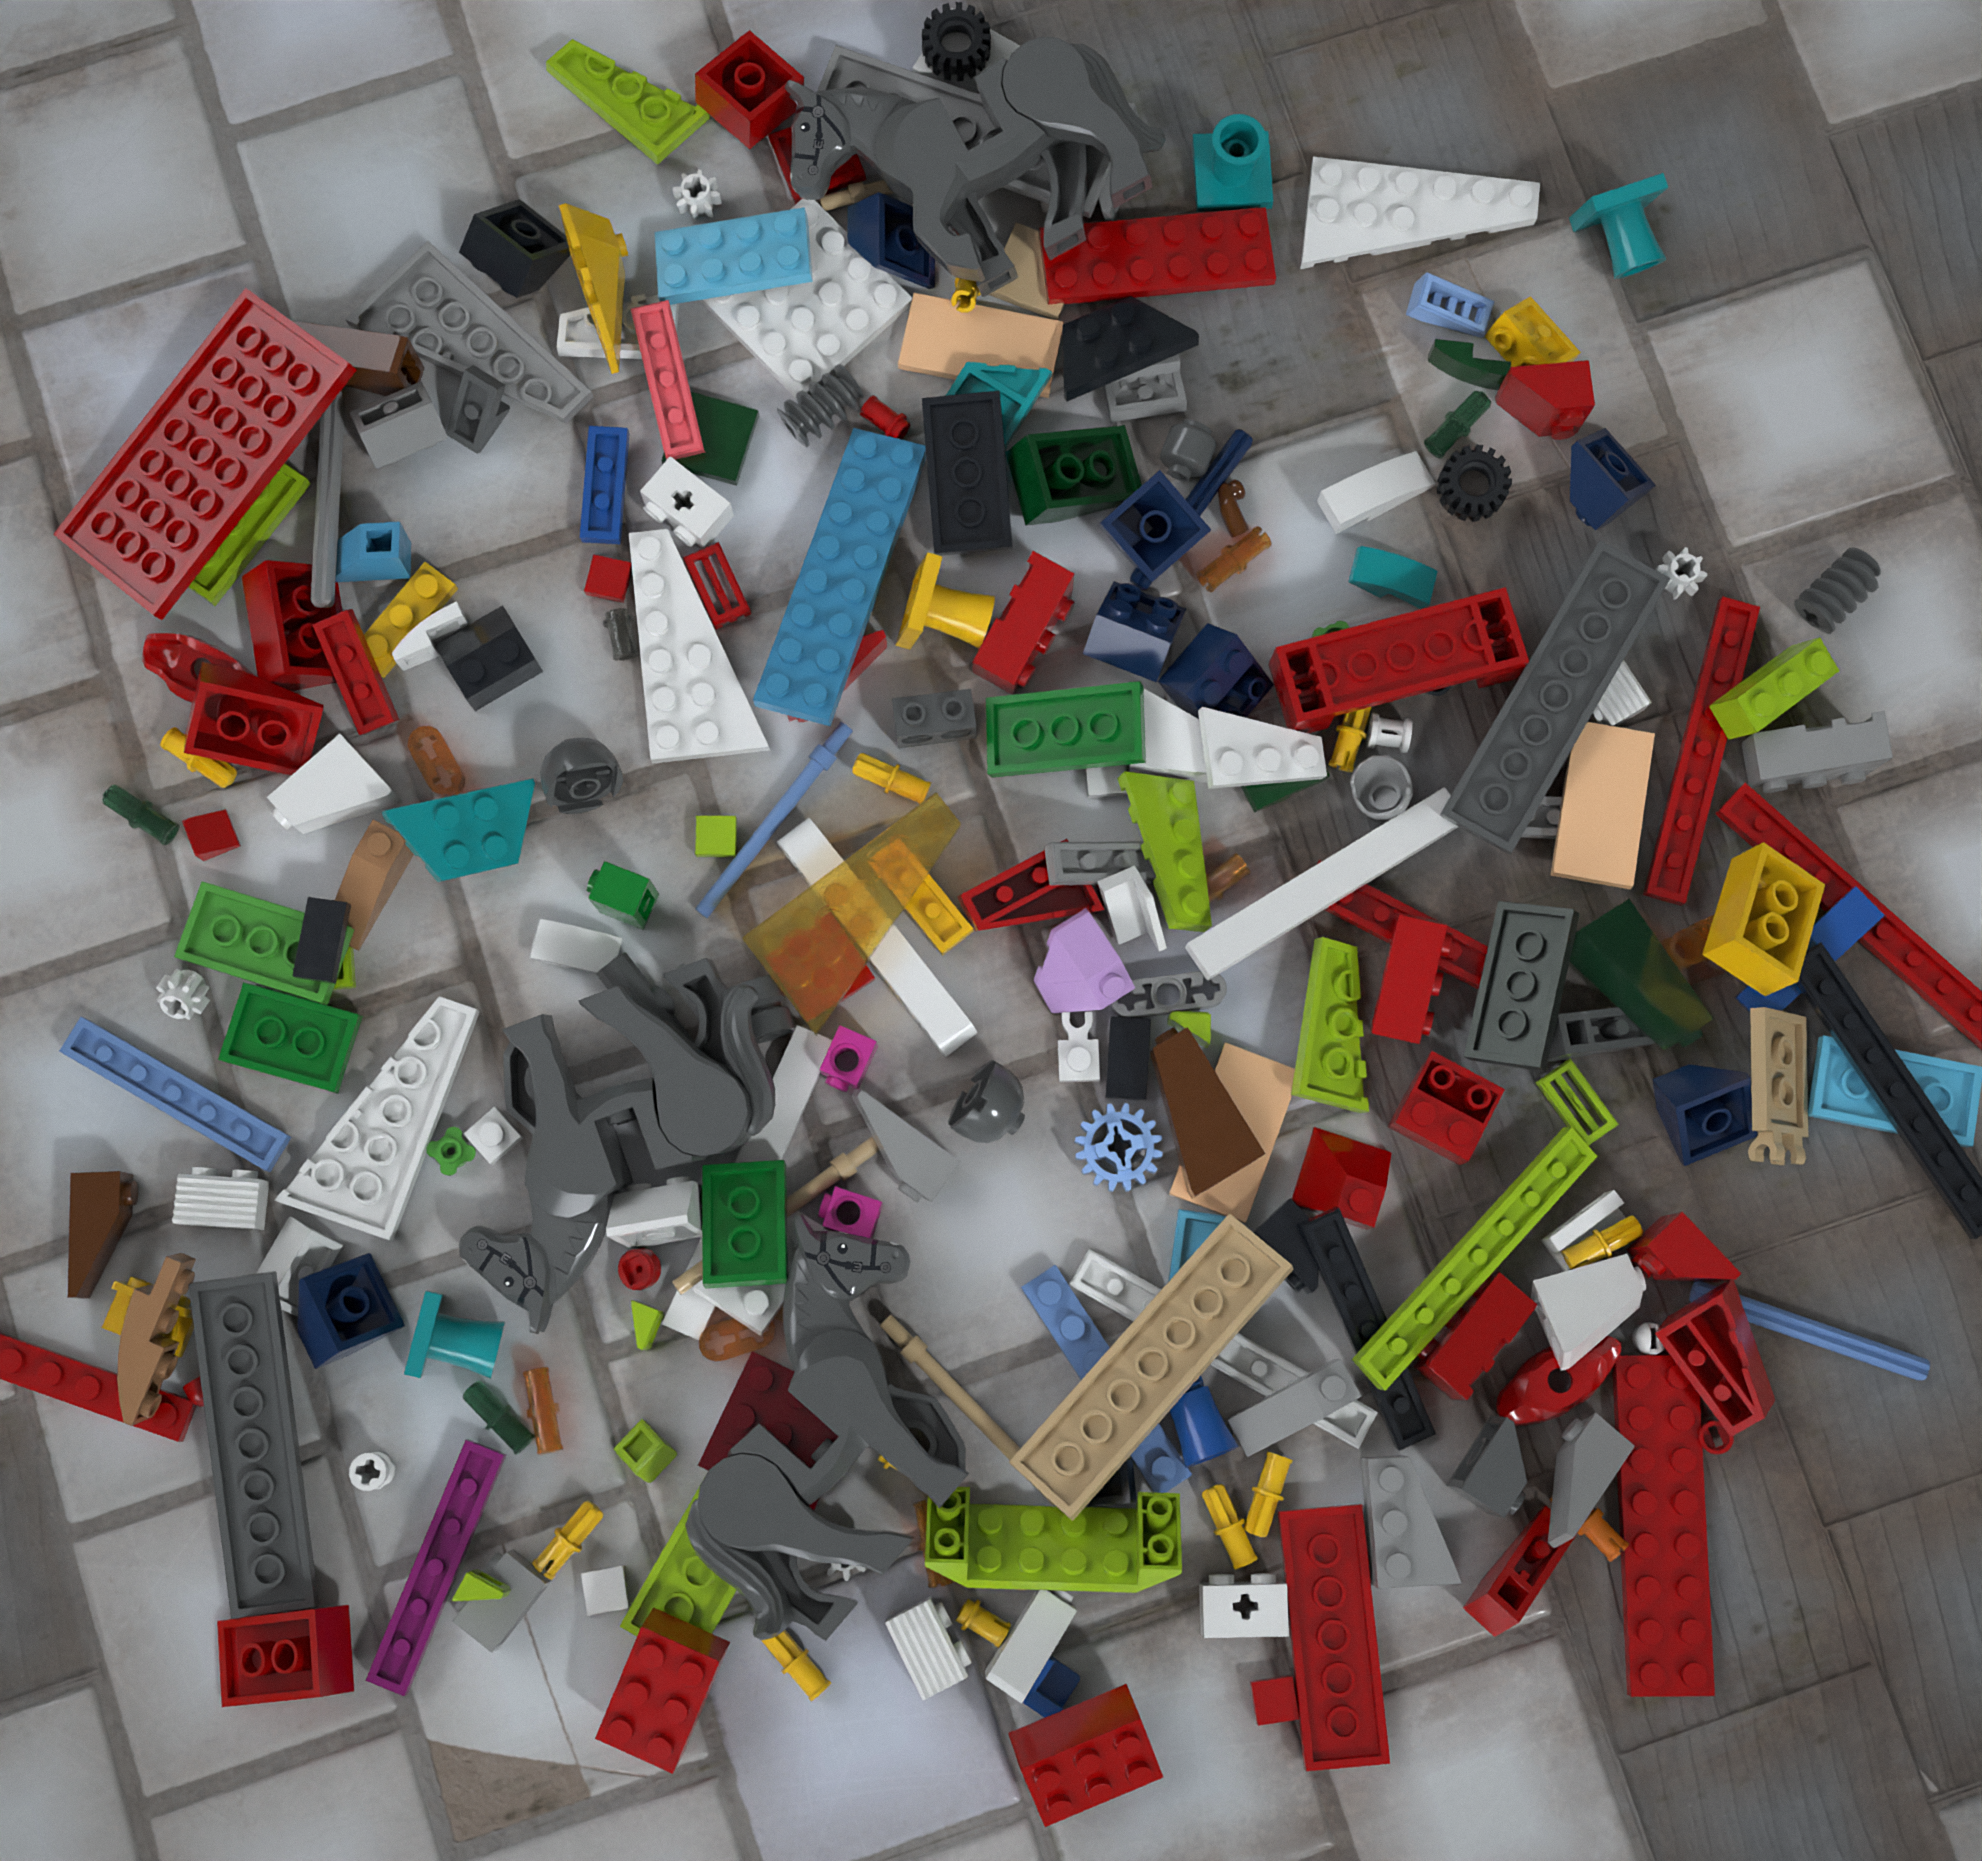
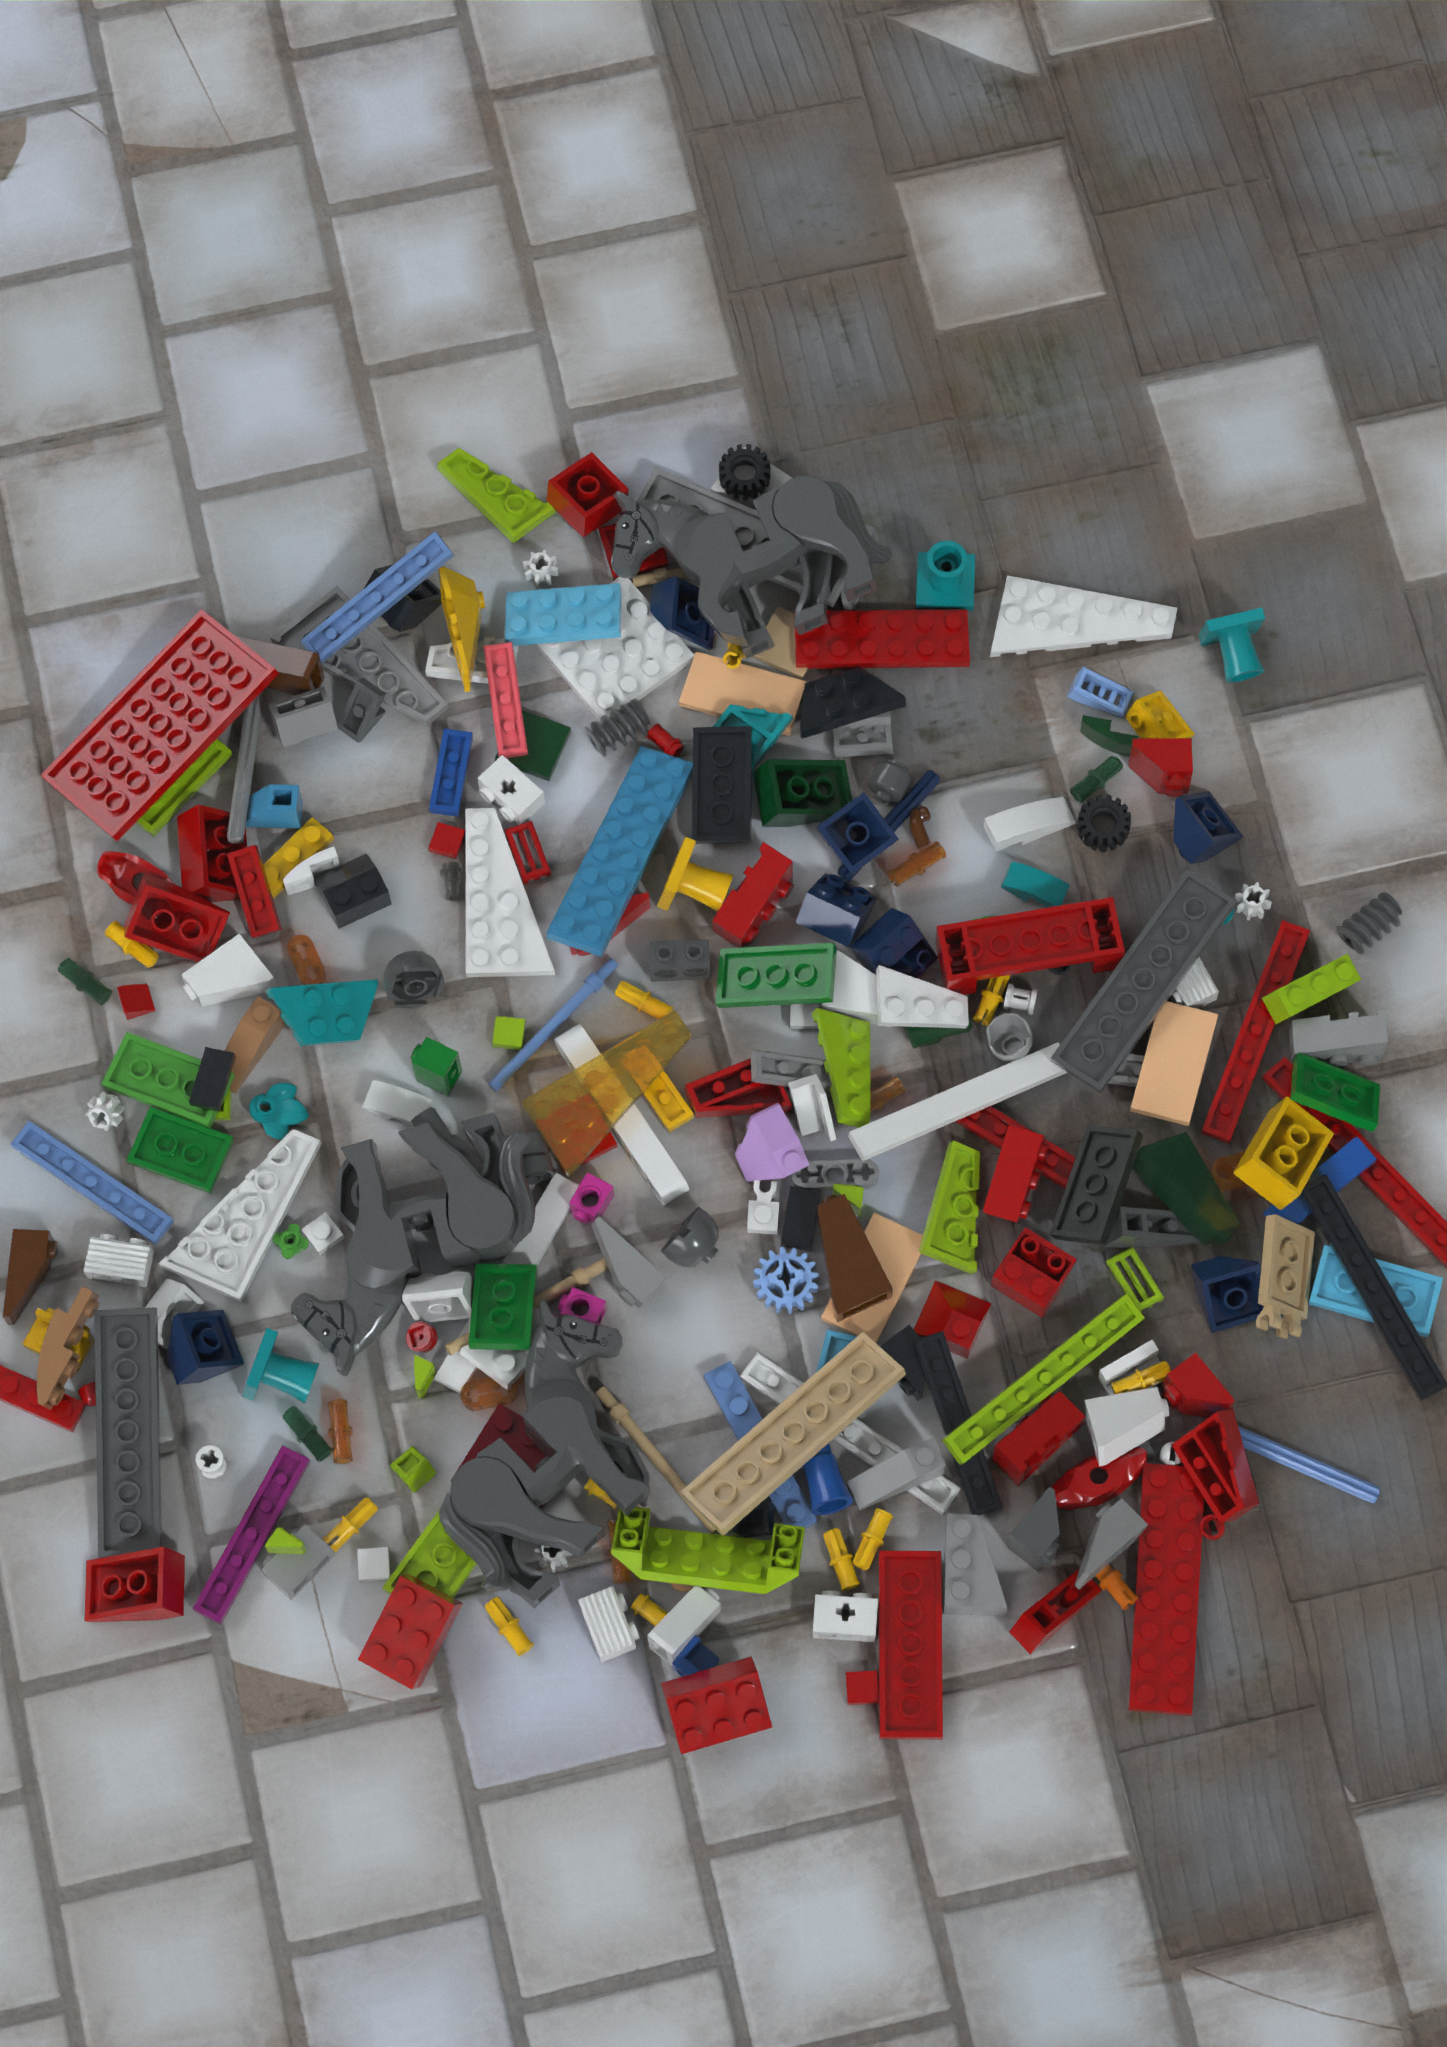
camera: 10 degrees right, 10 degrees down
(423, 968) = (283, 1110): none -> teal plate
(482, 252) = (378, 597): none -> medium blue plate
(1820, 827) = (1335, 1092): none -> green plate

